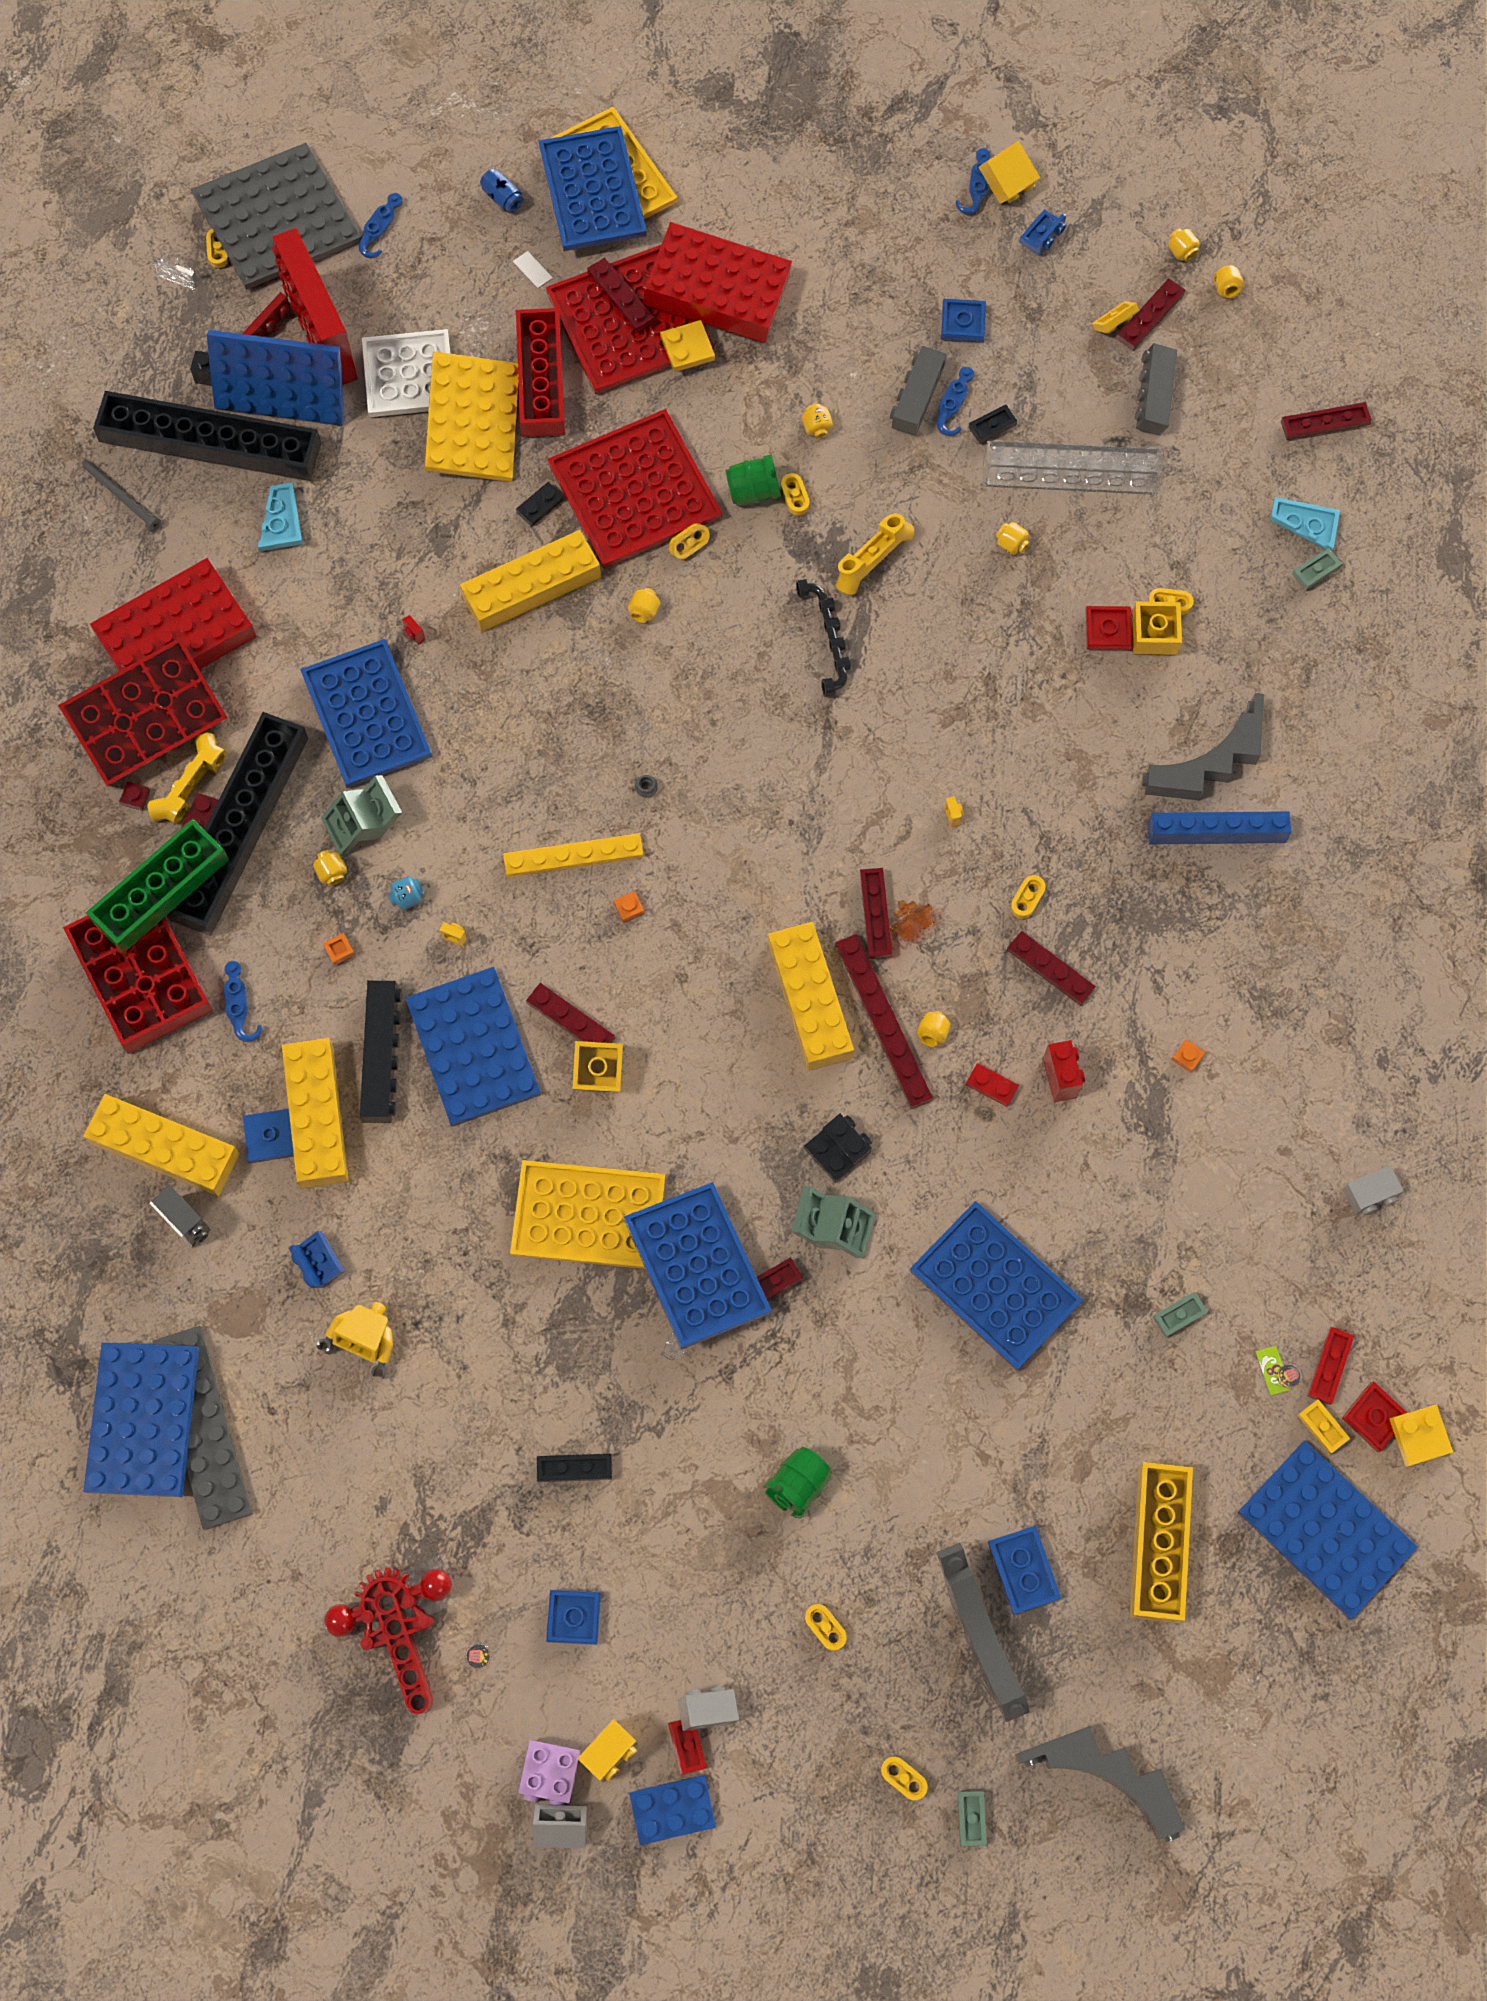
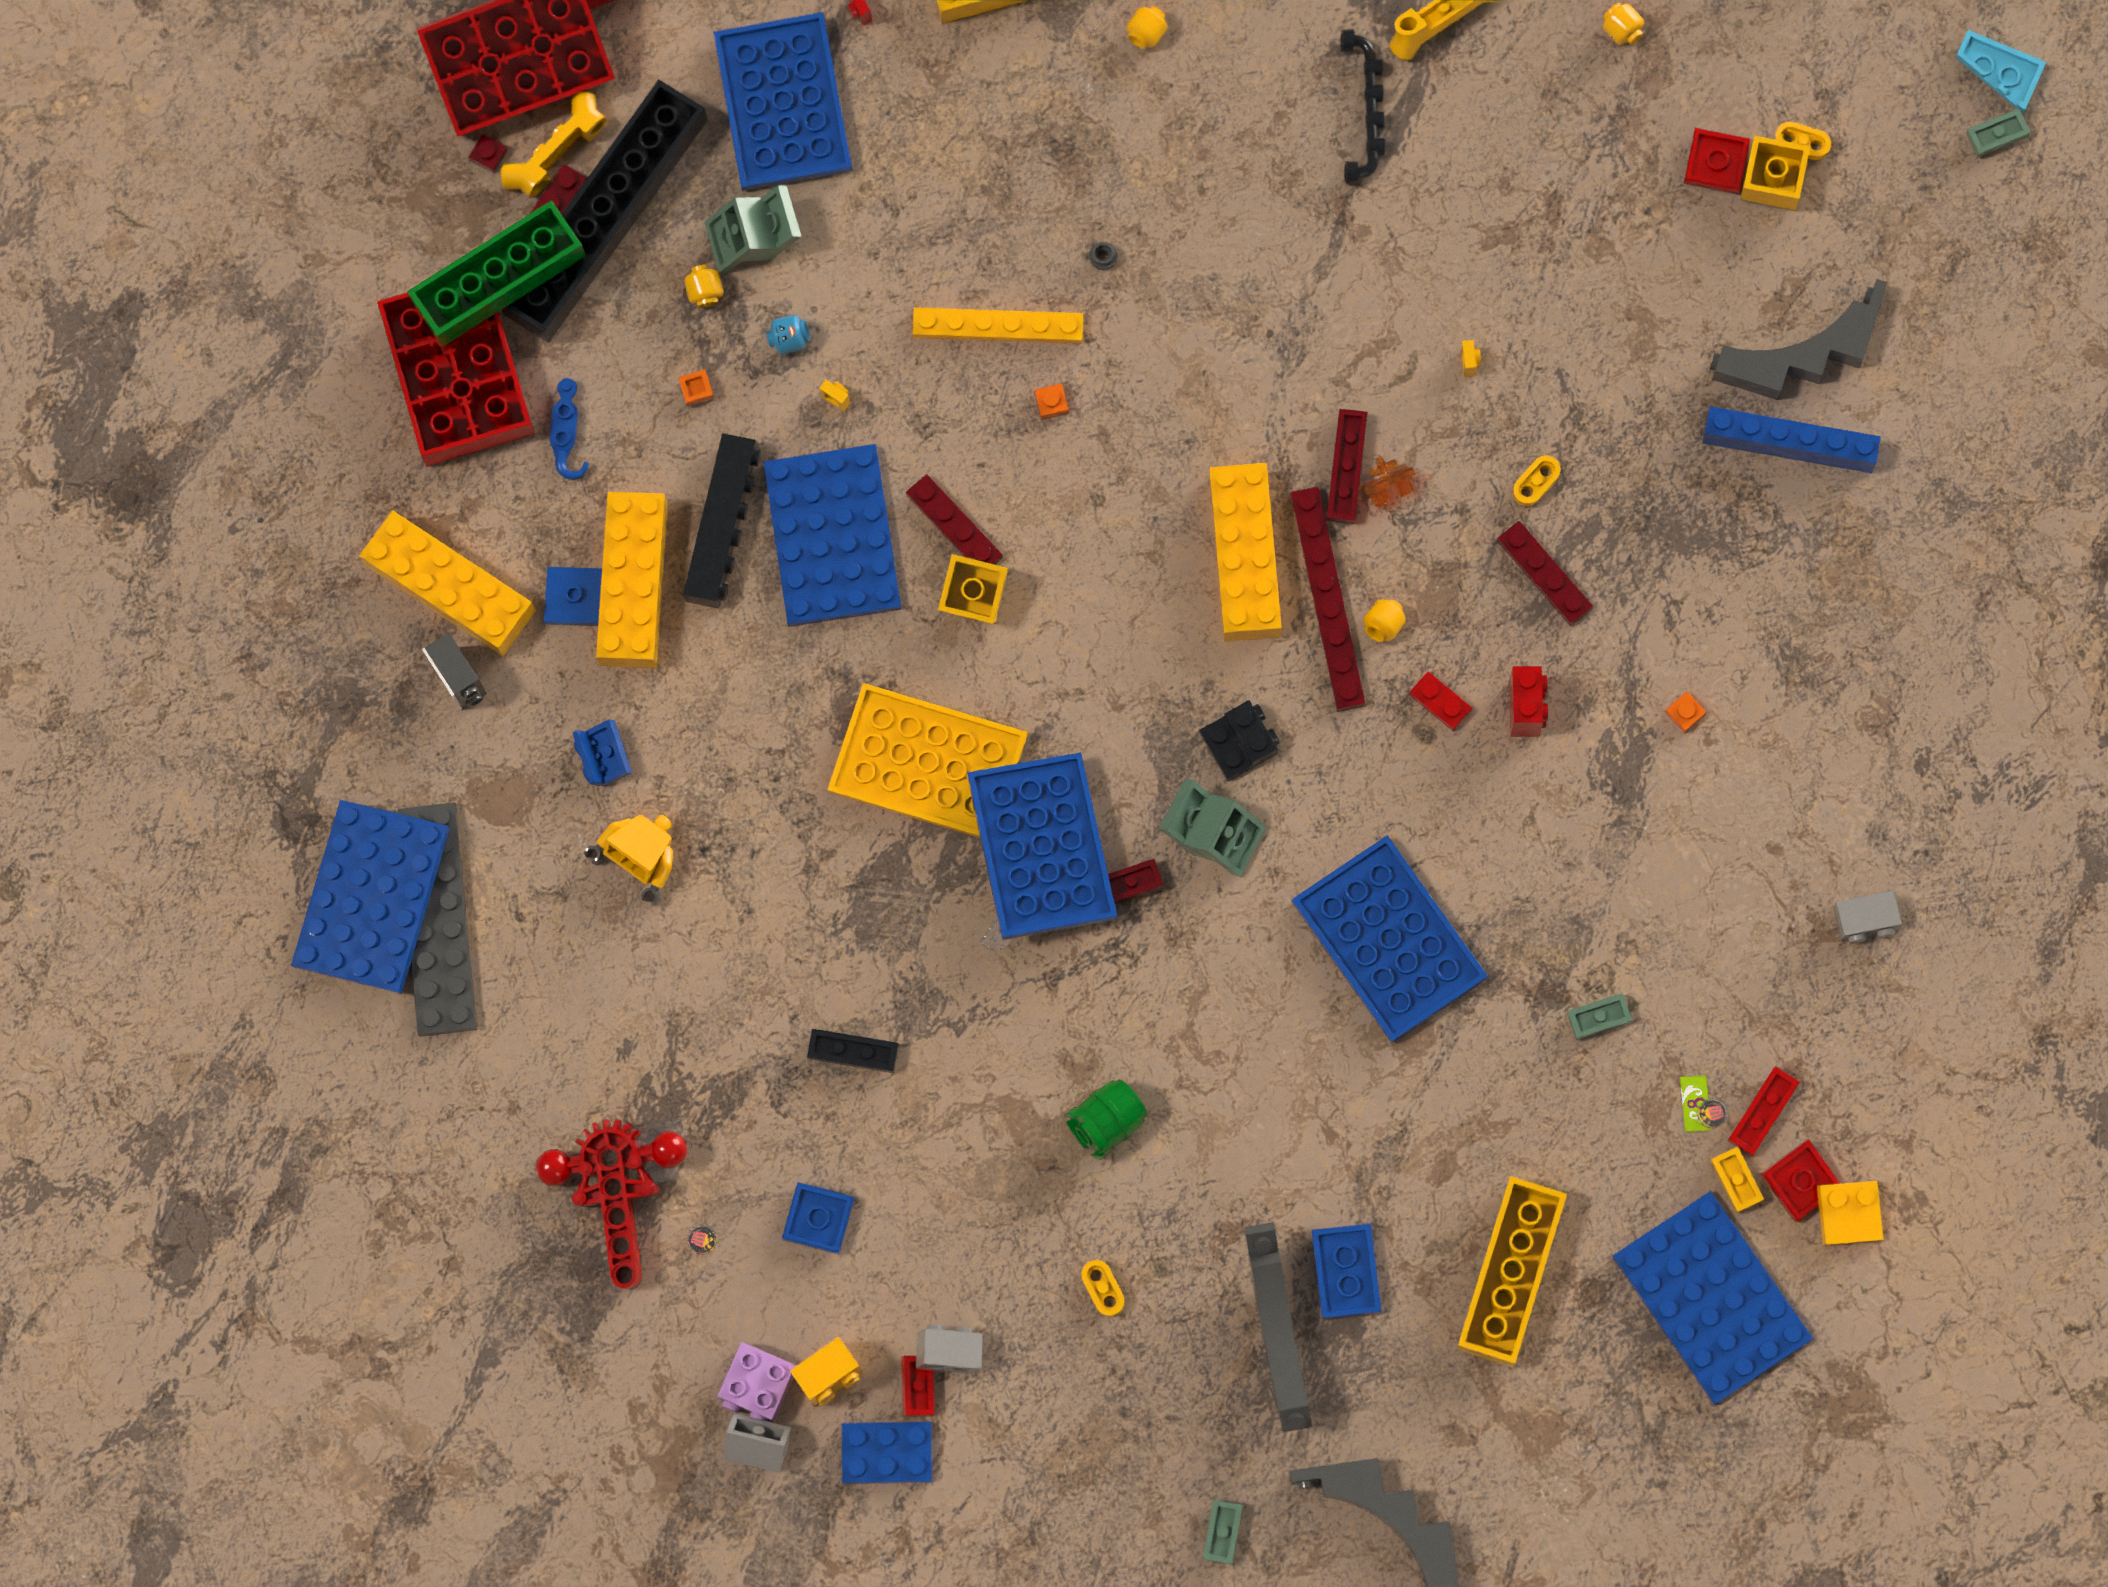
camera: 20 degrees right, 5 degrees up
(905, 1776) = (1155, 1473): yellow plate -> none

